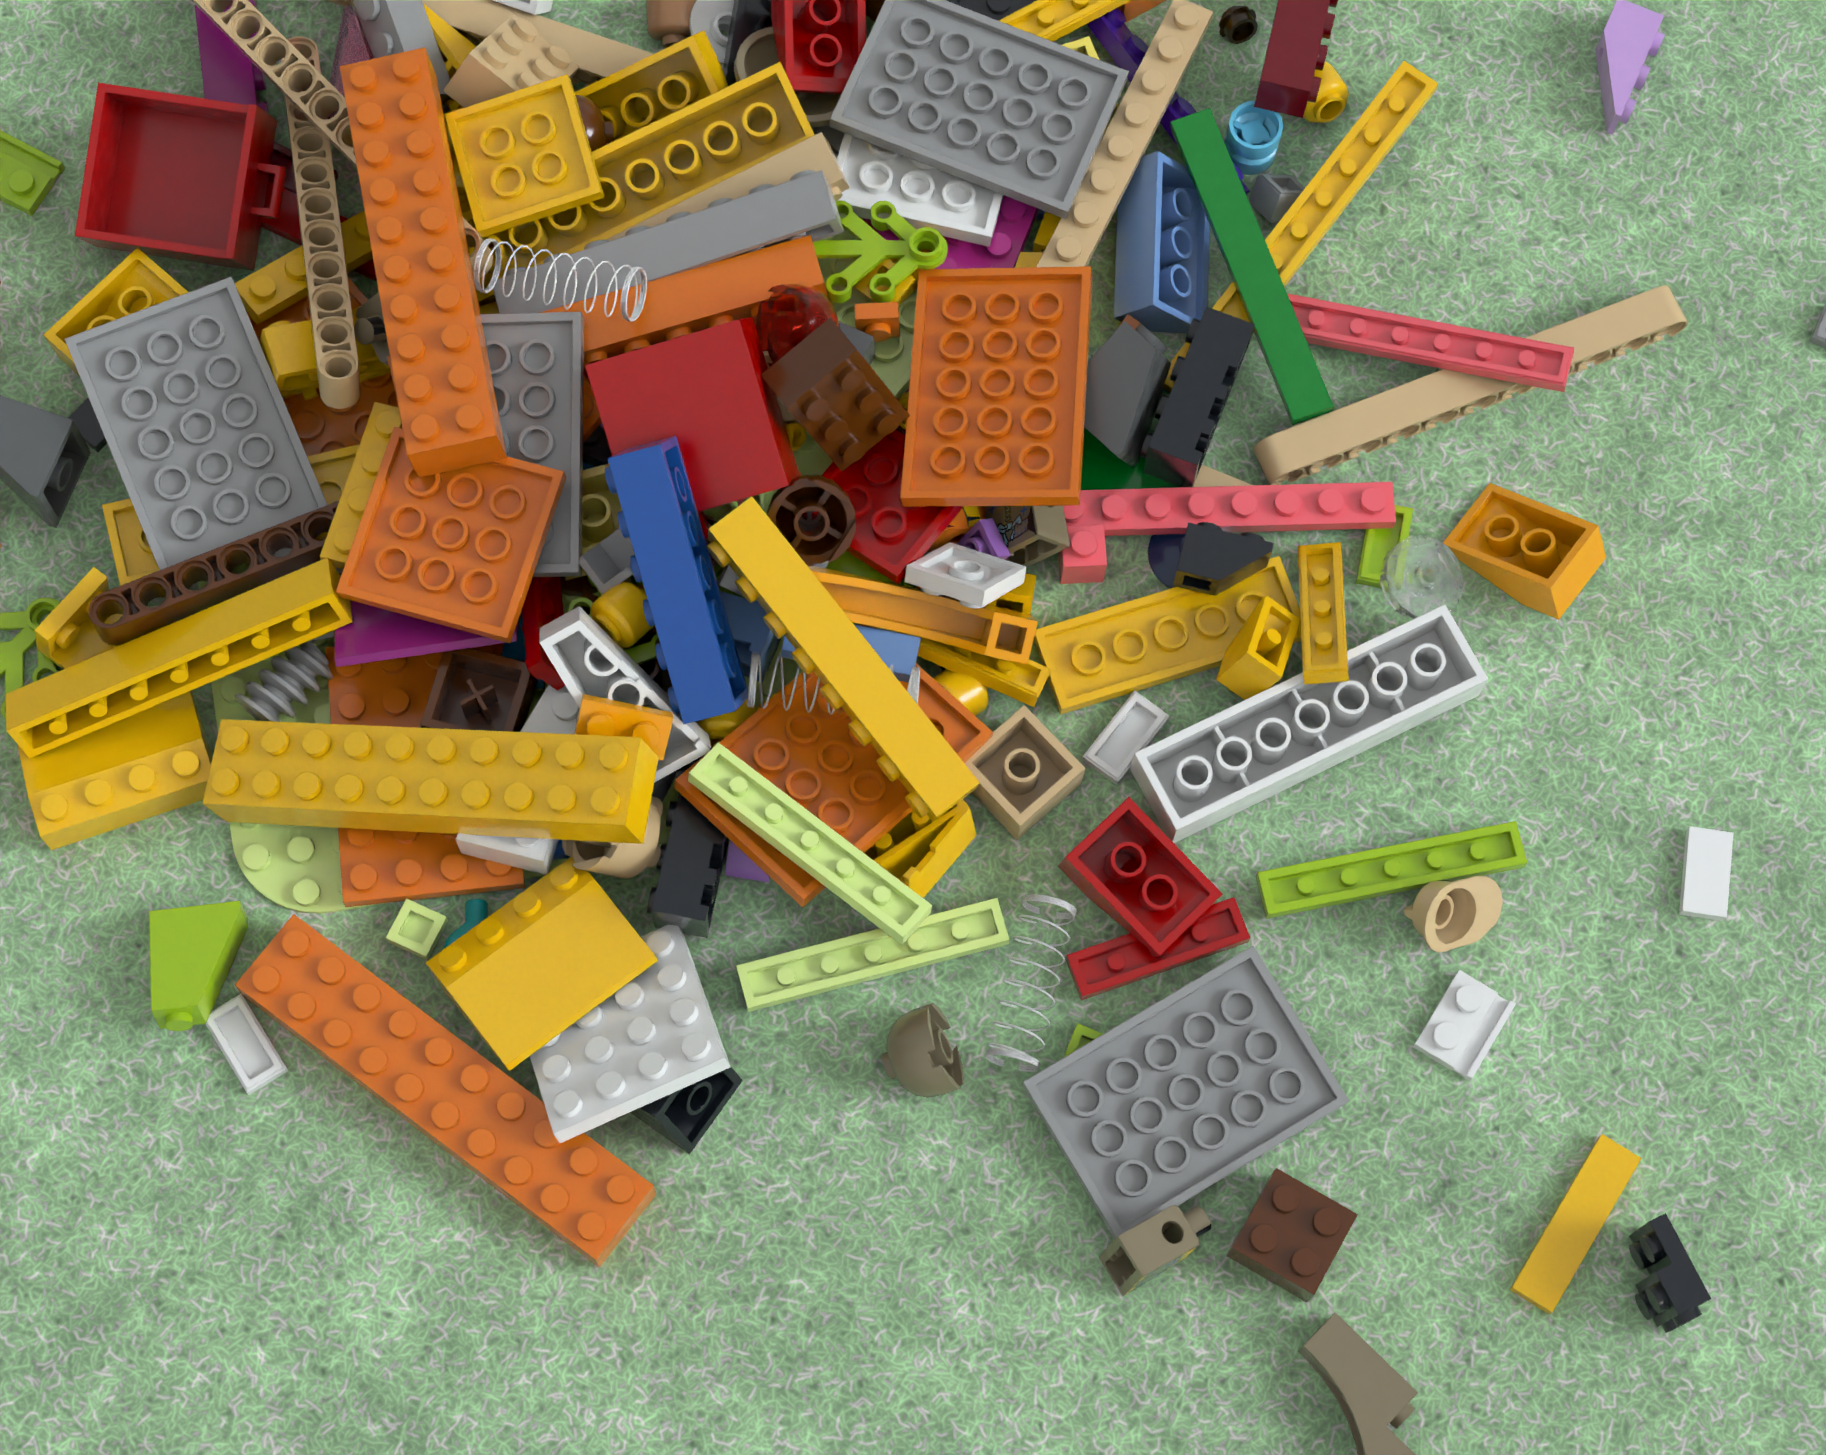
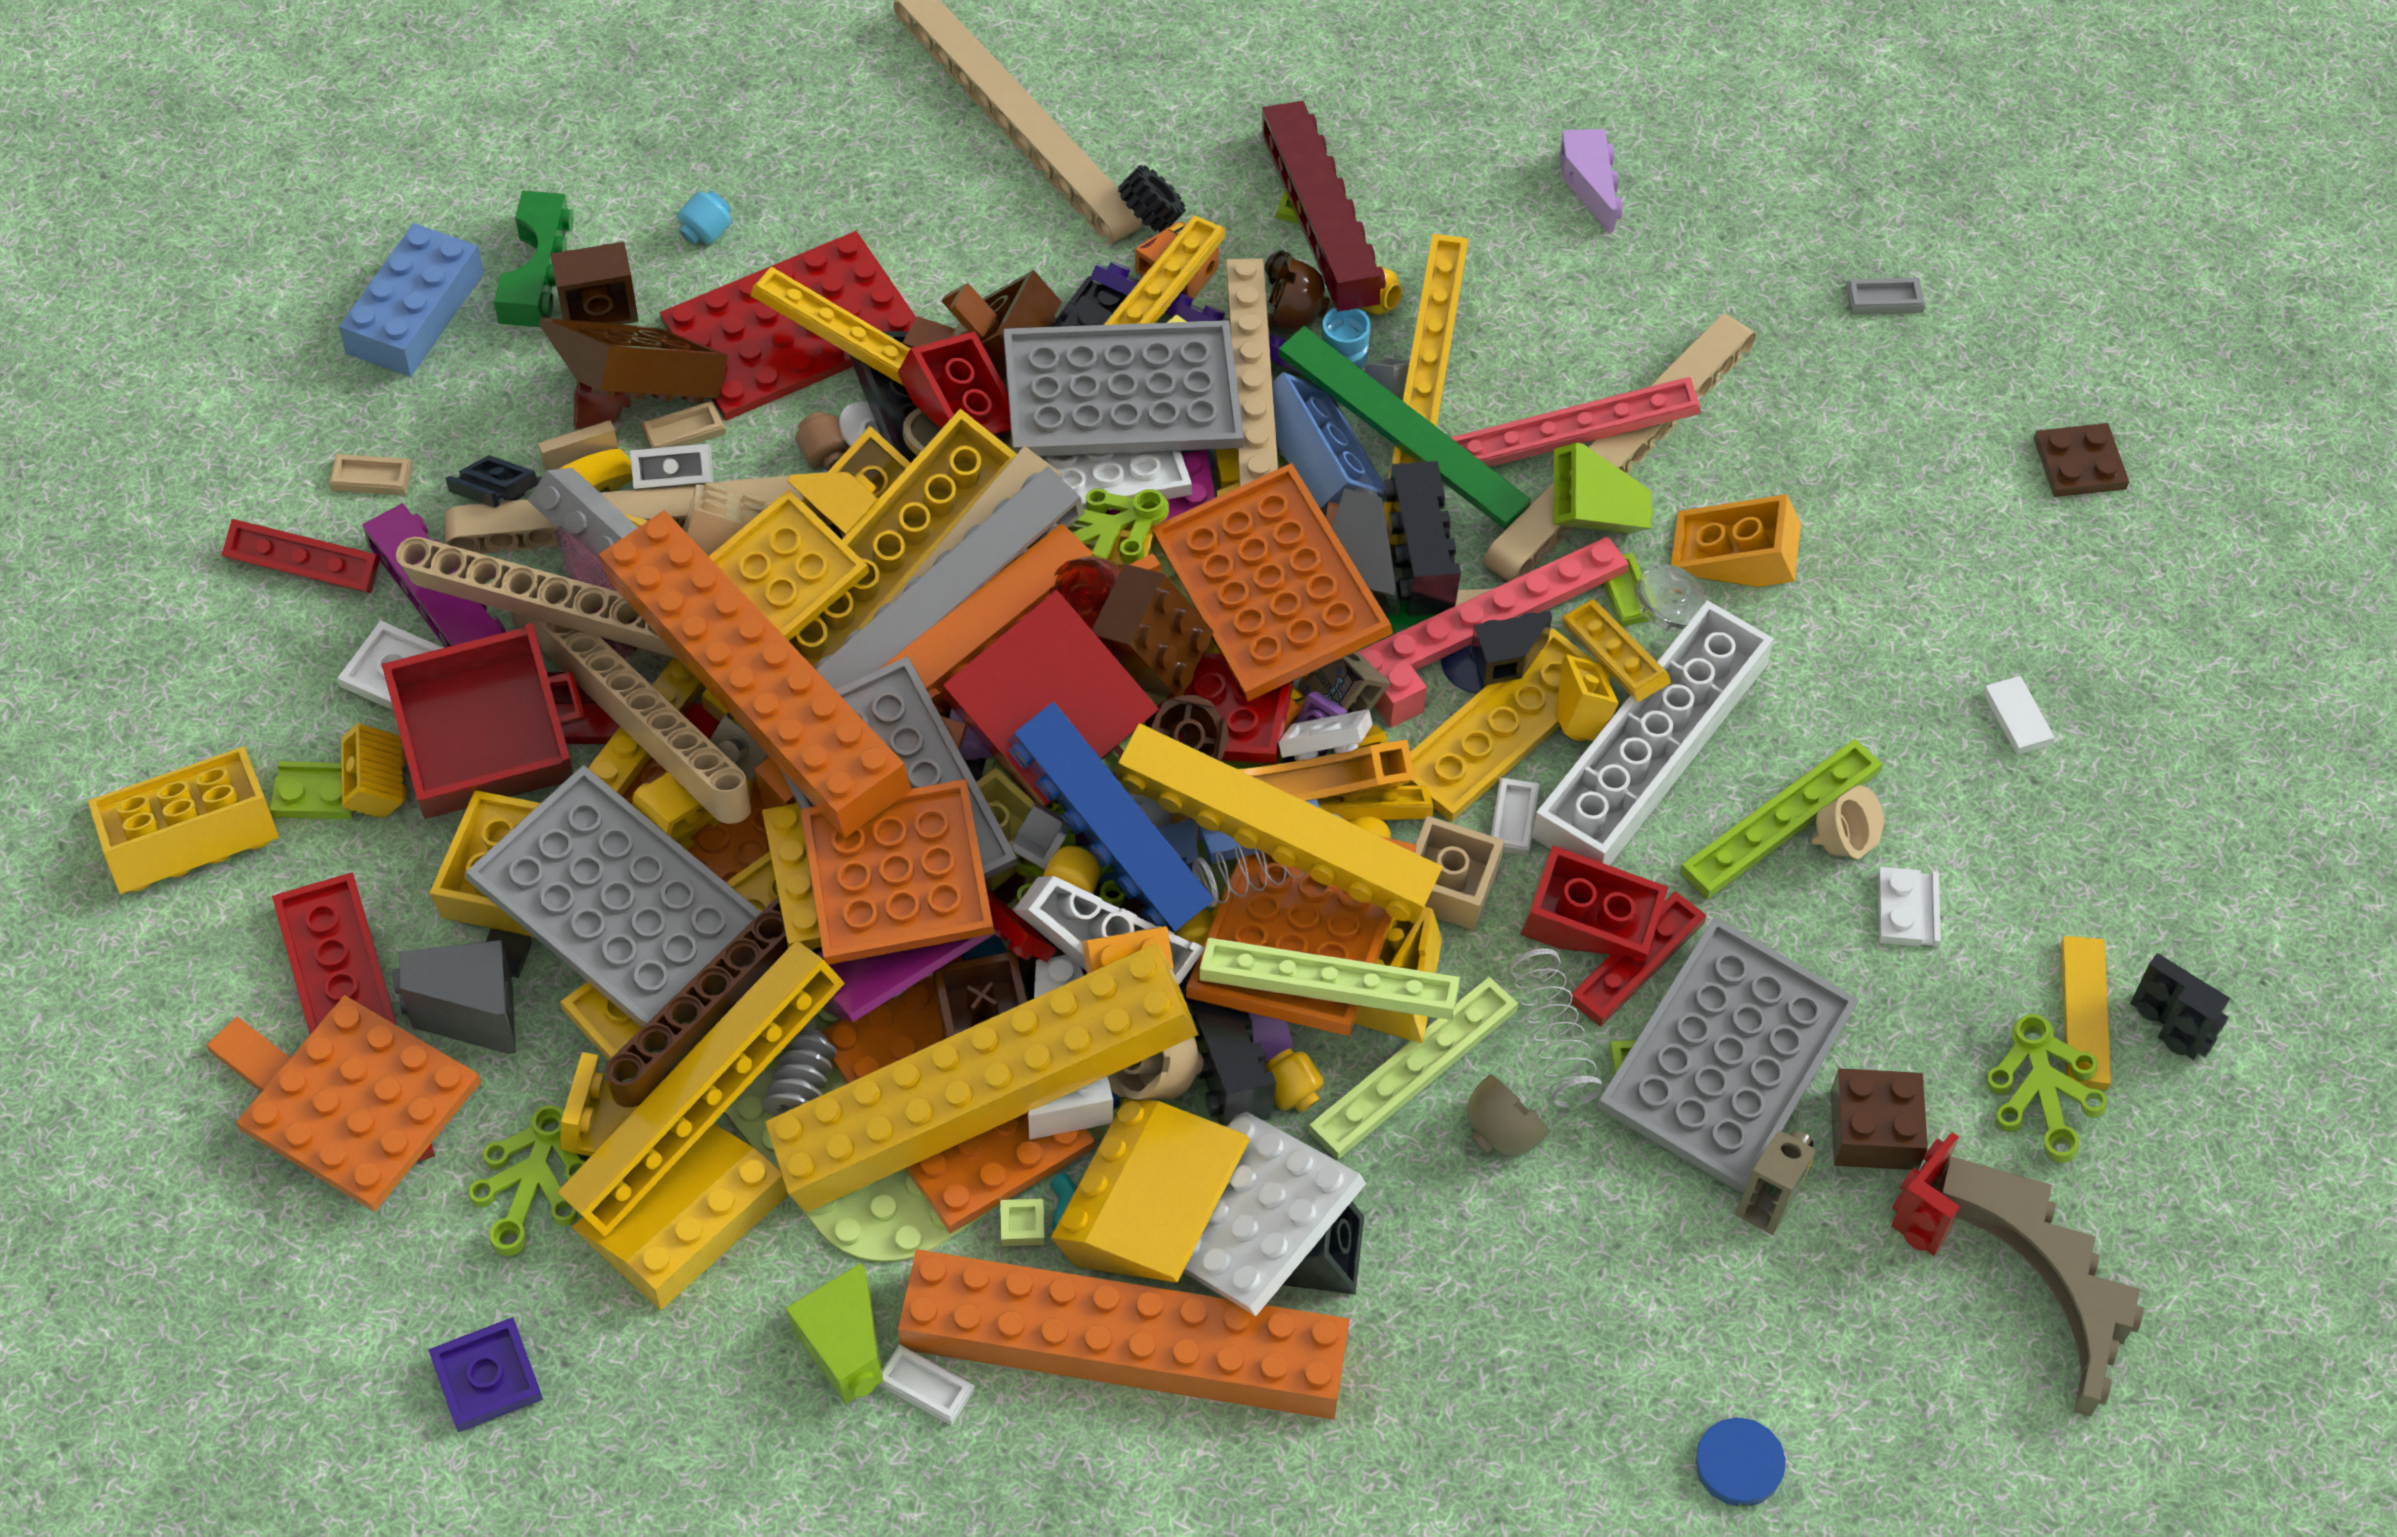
camera: 25 degrees left, 15 degrees down
(58, 178) = (372, 771): none -> yellow brick
(146, 62) = (384, 644): none -> white plate
(618, 95) = (837, 495): none -> yellow slope
(635, 314) = (943, 615): white piece -> none
(746, 912) = (1295, 1080): none -> yellow head
(1229, 69) = (1297, 297): none -> reddish brown cylinder
(1270, 1362) = (1922, 1211): none -> red bracket
(1403, 434) = (1597, 493): none -> lime slope
(1484, 1277) = (2045, 1081): none -> lime plant

